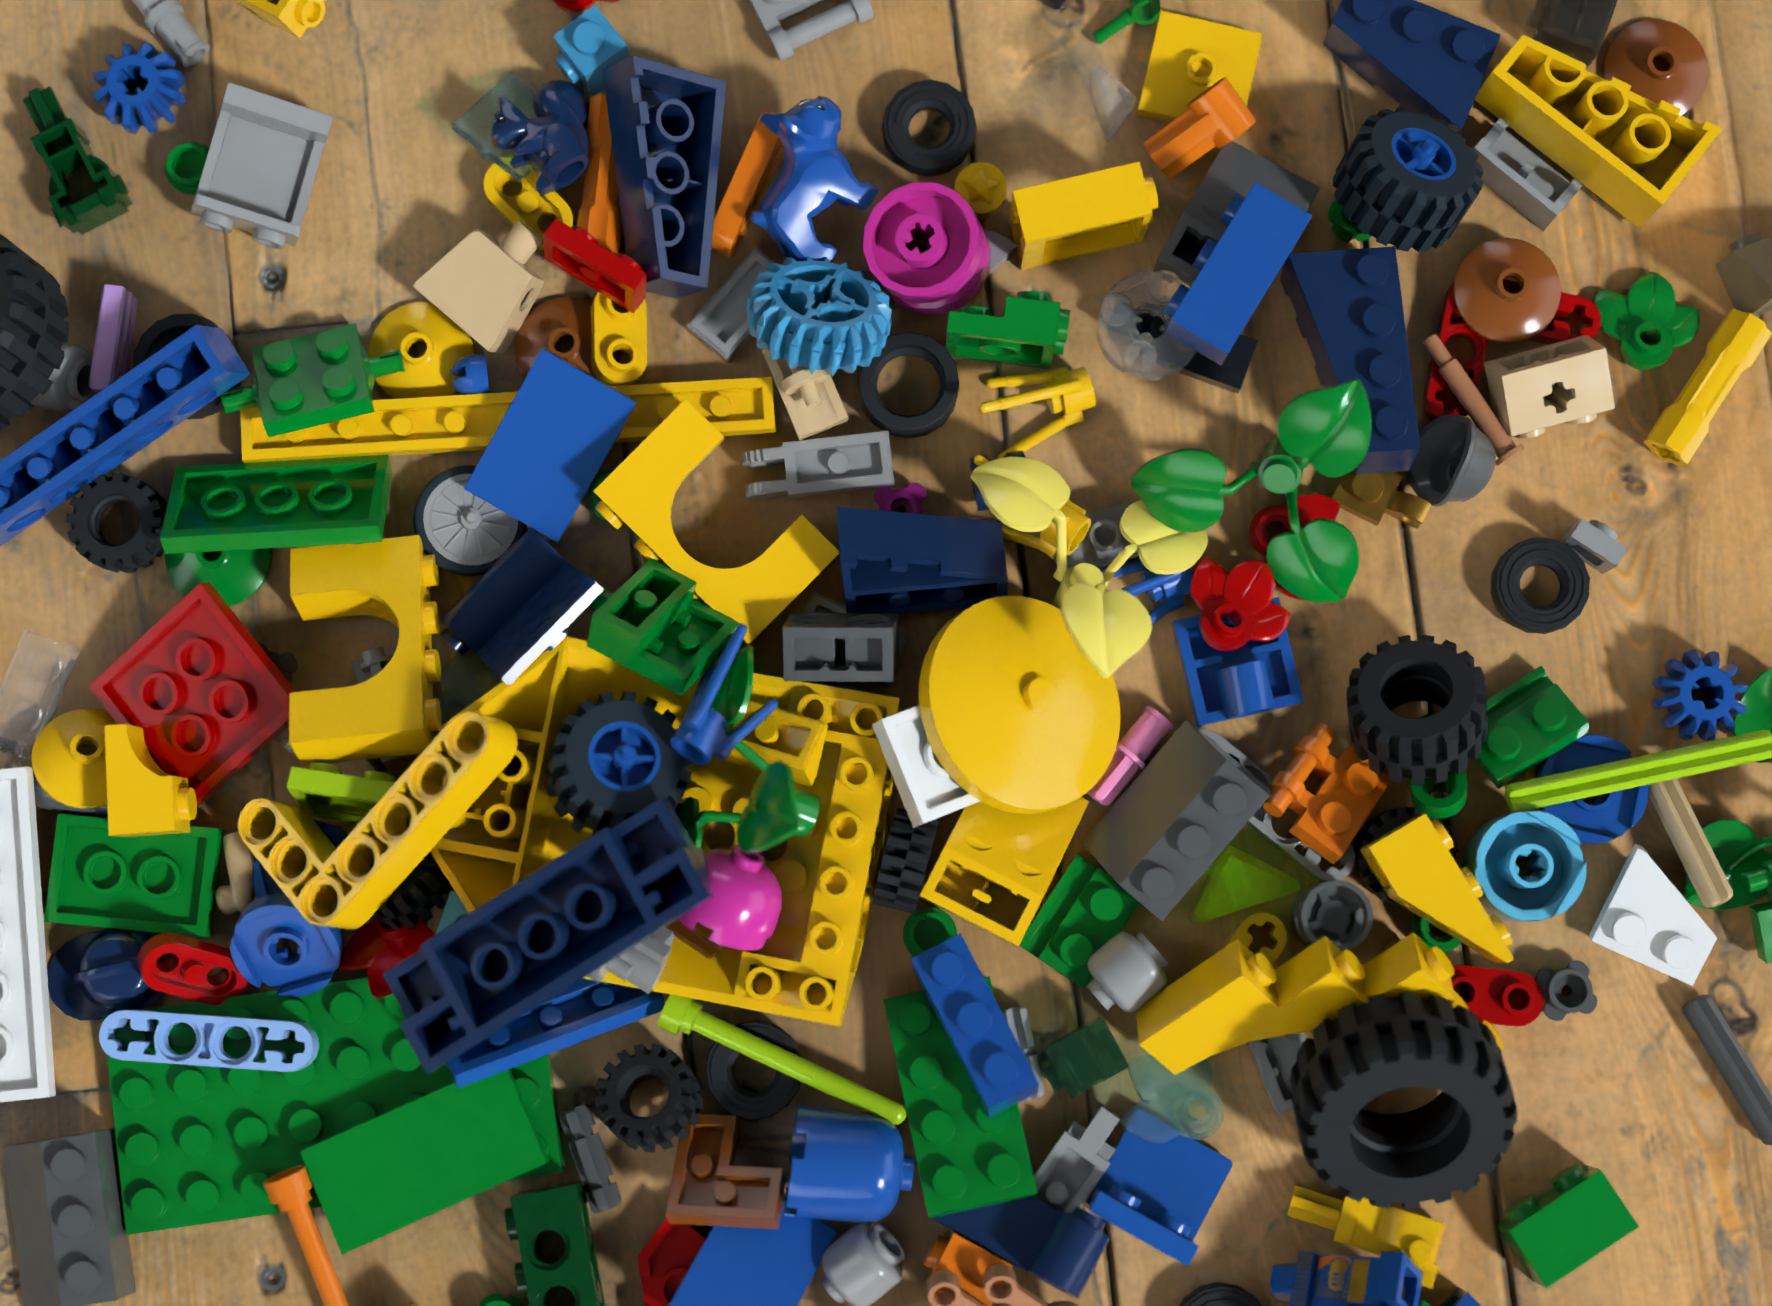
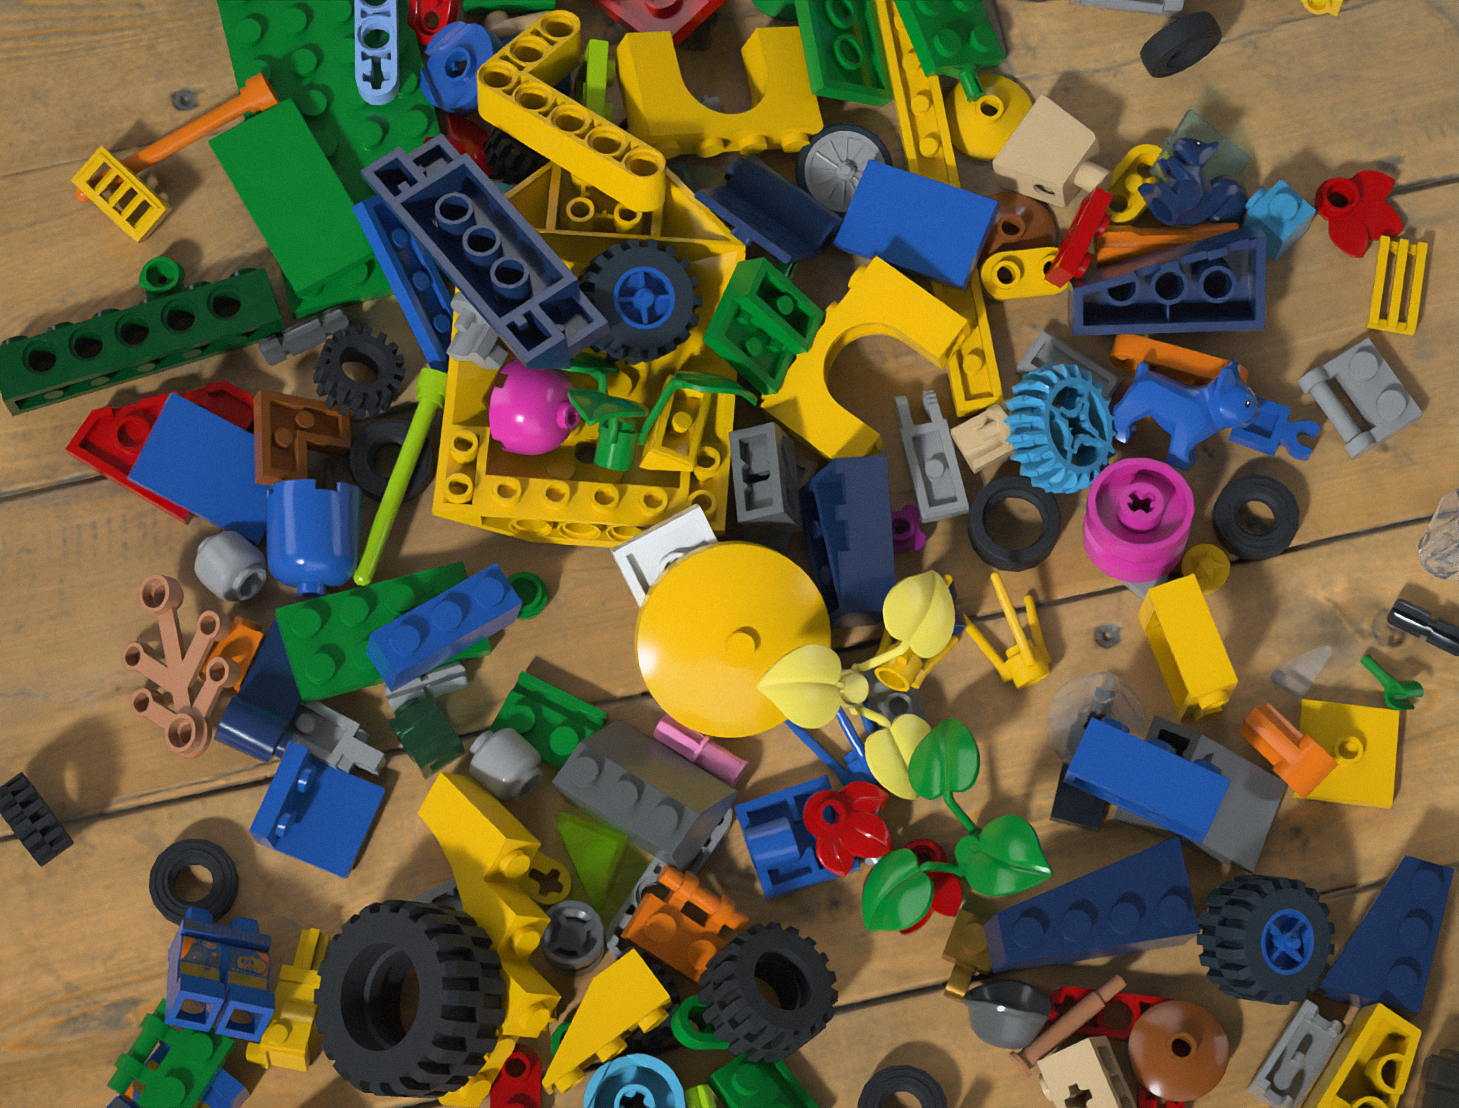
camera: 80 degrees right, 10 degrees down
(371, 124) = (1180, 44): none -> black tyre
(475, 374) = (974, 159): blue hinge -> none
(702, 728) = (674, 356): blue plant -> none
(837, 85) = (1273, 430): none -> blue plate
(904, 863) = (580, 560): black tyre -> none
(1001, 865) = (586, 644): yellow slope -> none
(1023, 337) = (1073, 601): green plate -> none
(1166, 1098) = (396, 812): clear light blue plate -> none

